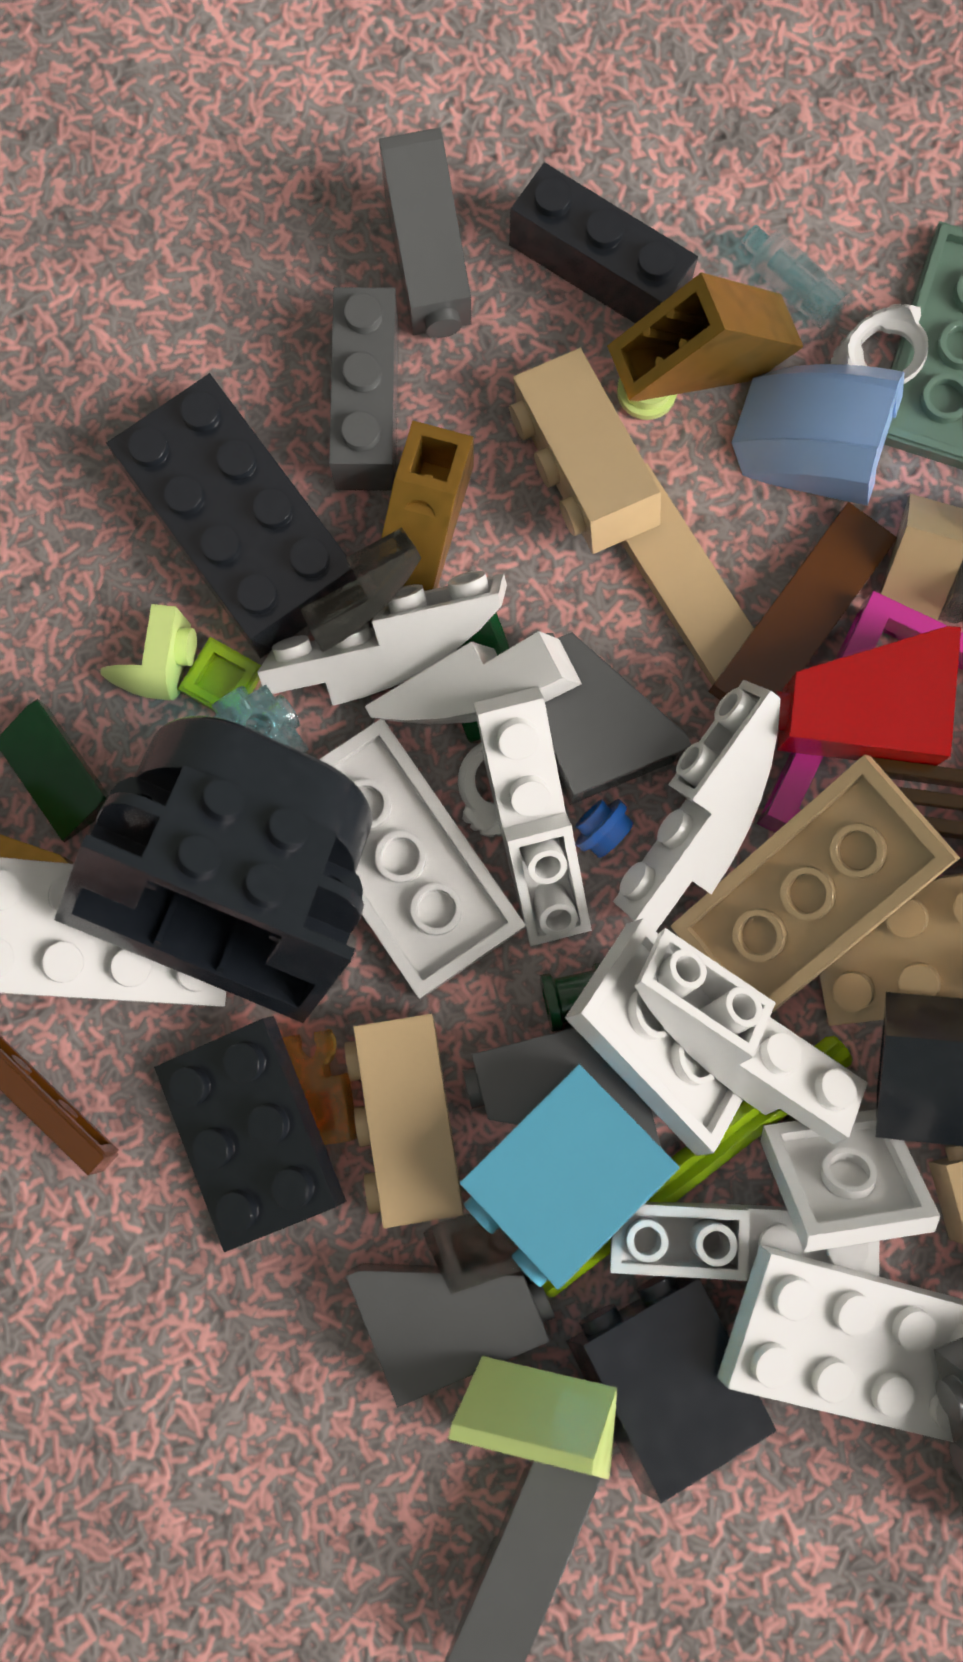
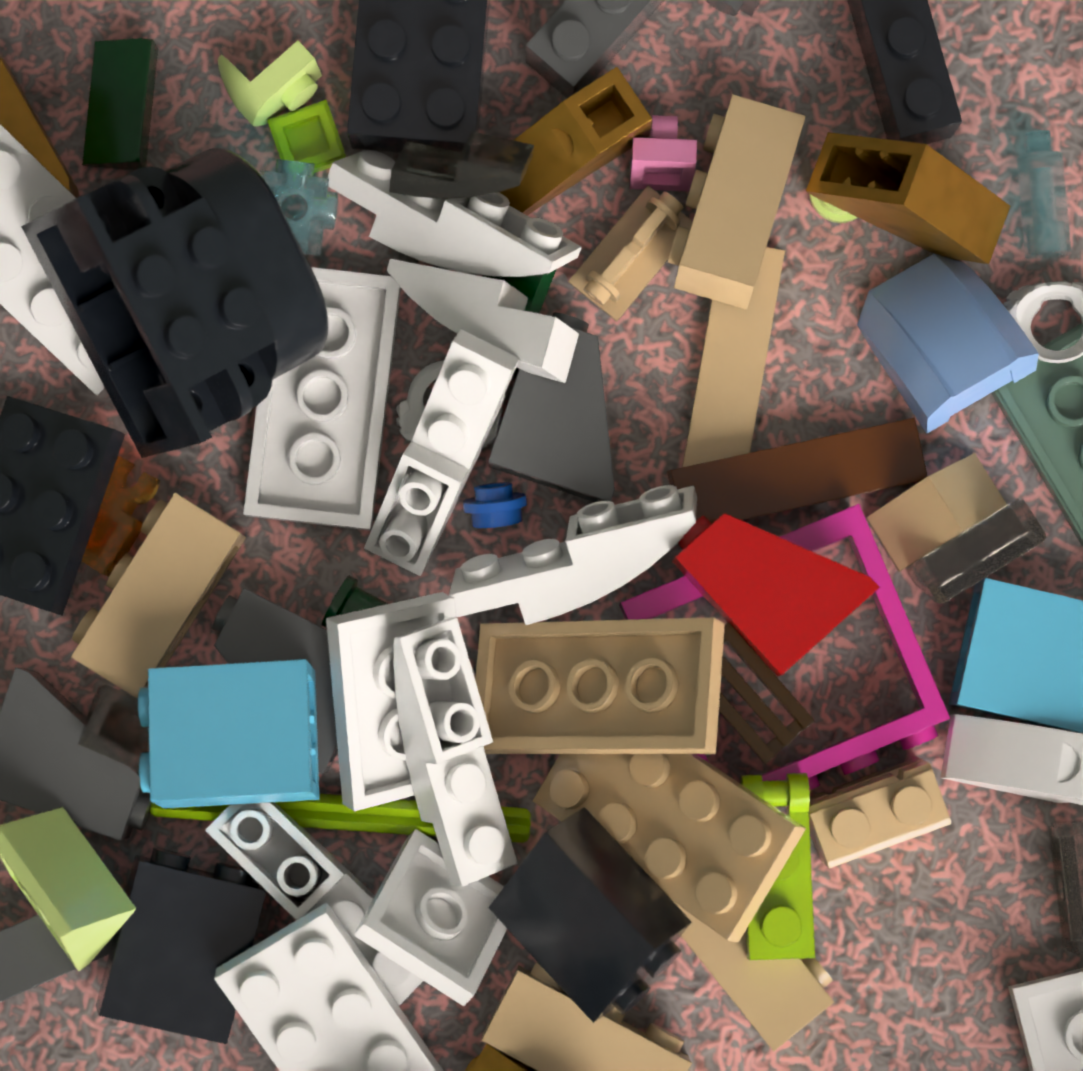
camera: 40 degrees right, 5 degrees up
(501, 470) = (663, 159): none -> bright pink tile
(536, 557) = (631, 252): none -> tan hinge

